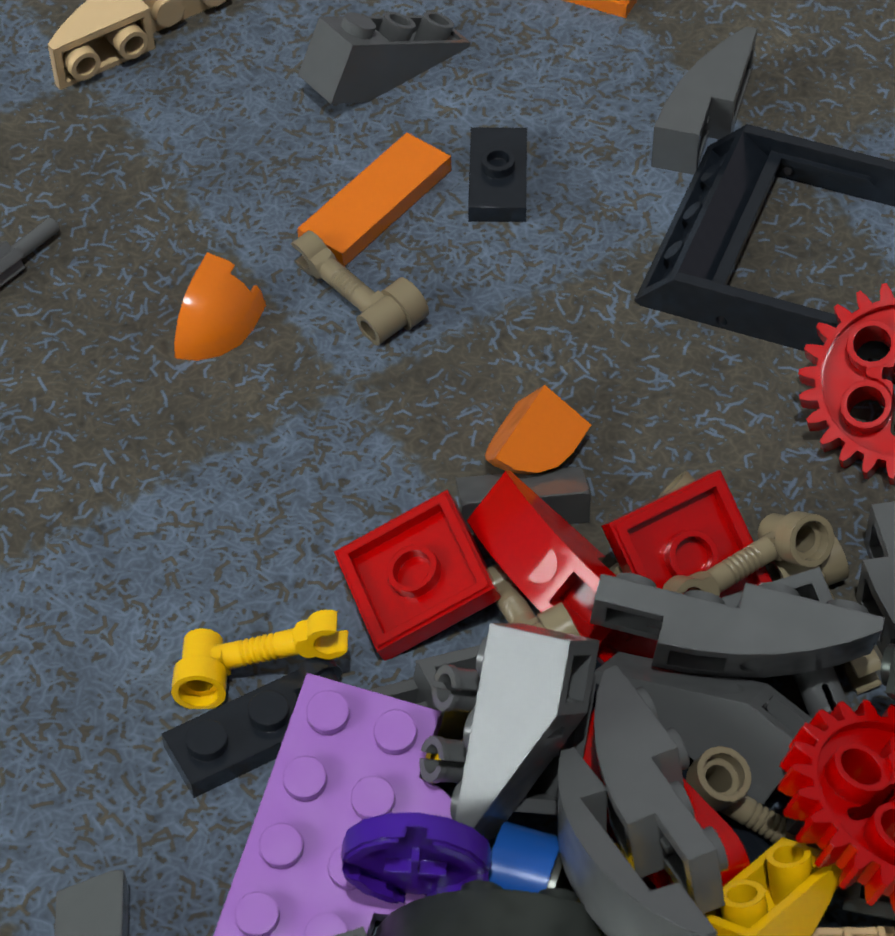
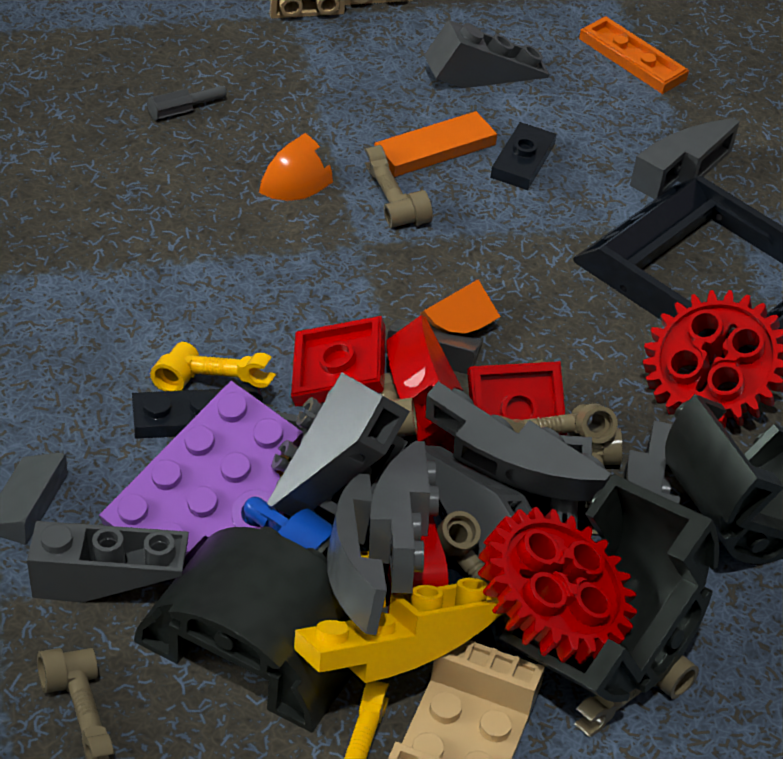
camera: 15 degrees right, 5 degrees down
(413, 855) = (235, 496): dark purple tile -> none

